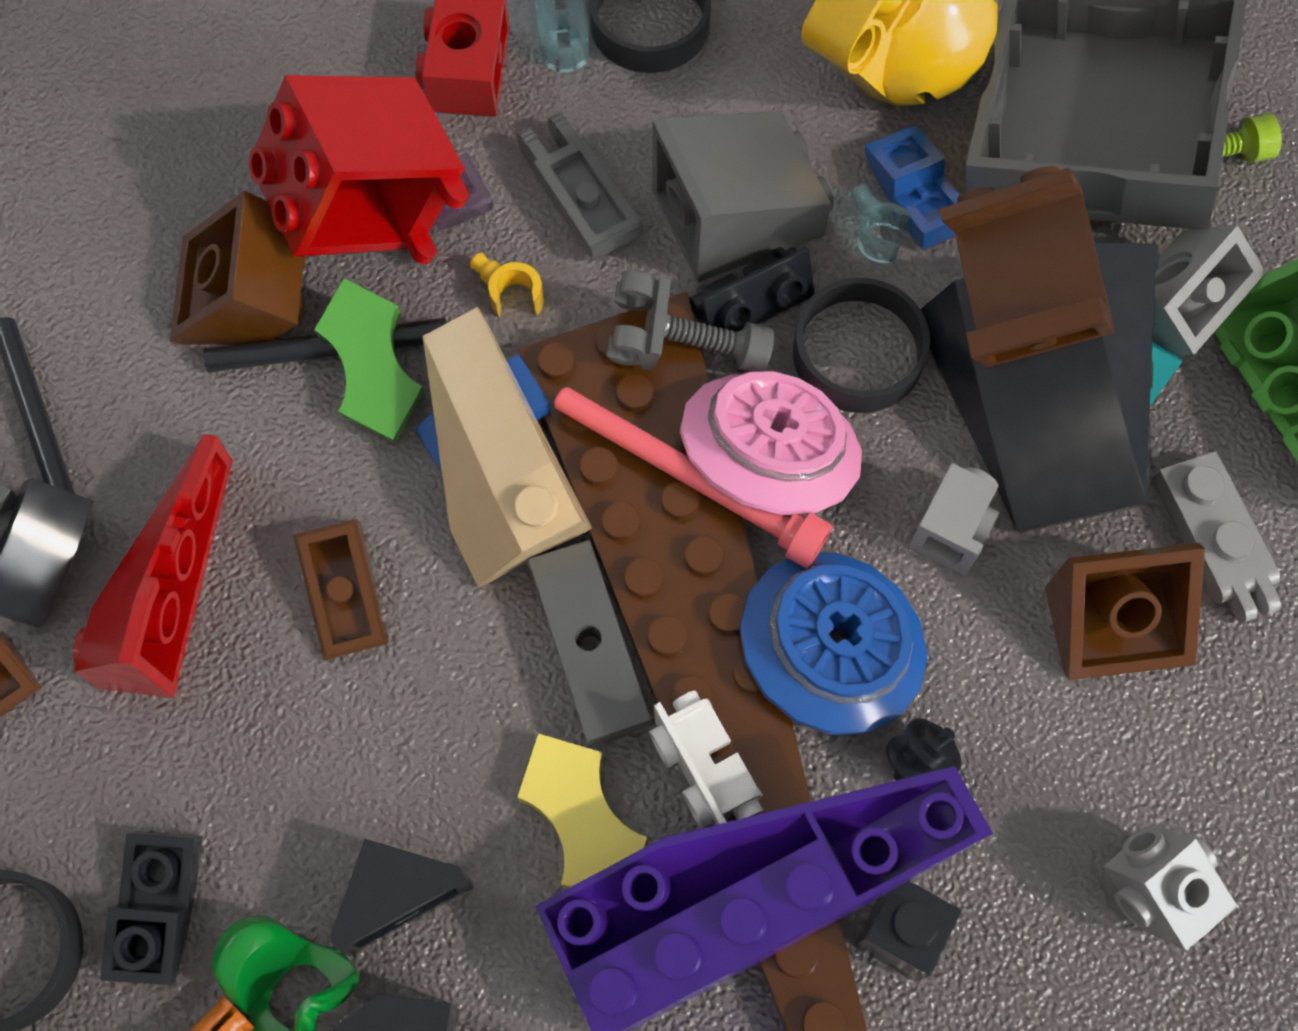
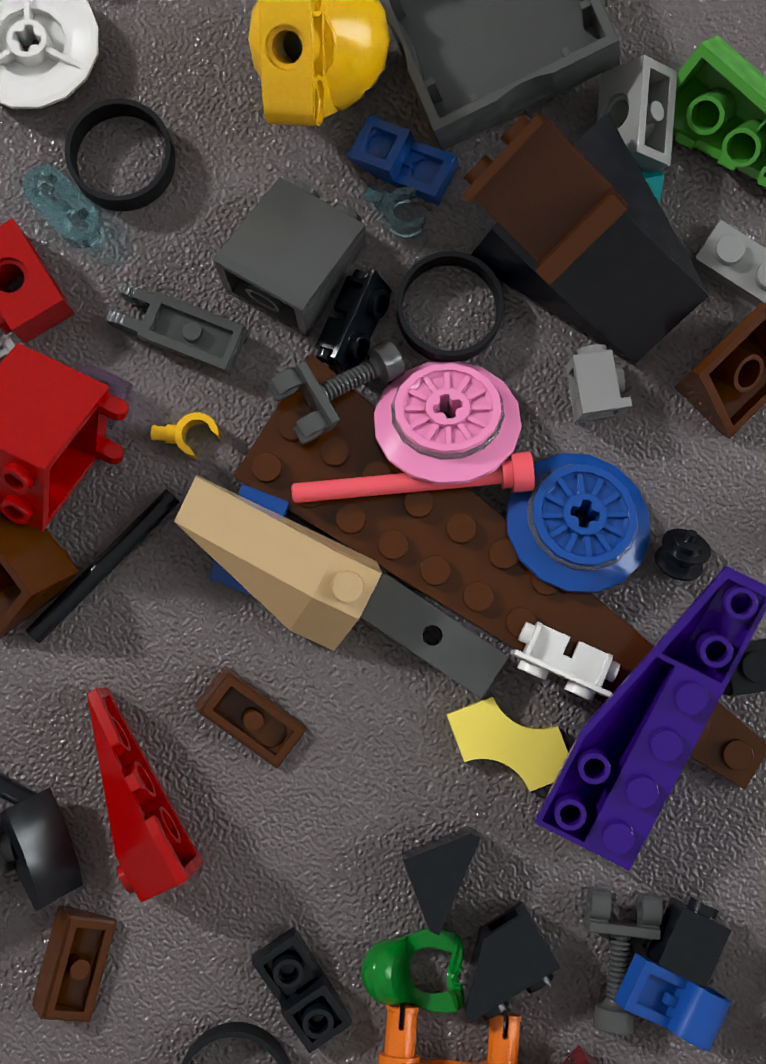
camera: 40 degrees left, 15 degrees up
(377, 388) = (125, 545): bright green tile -> none

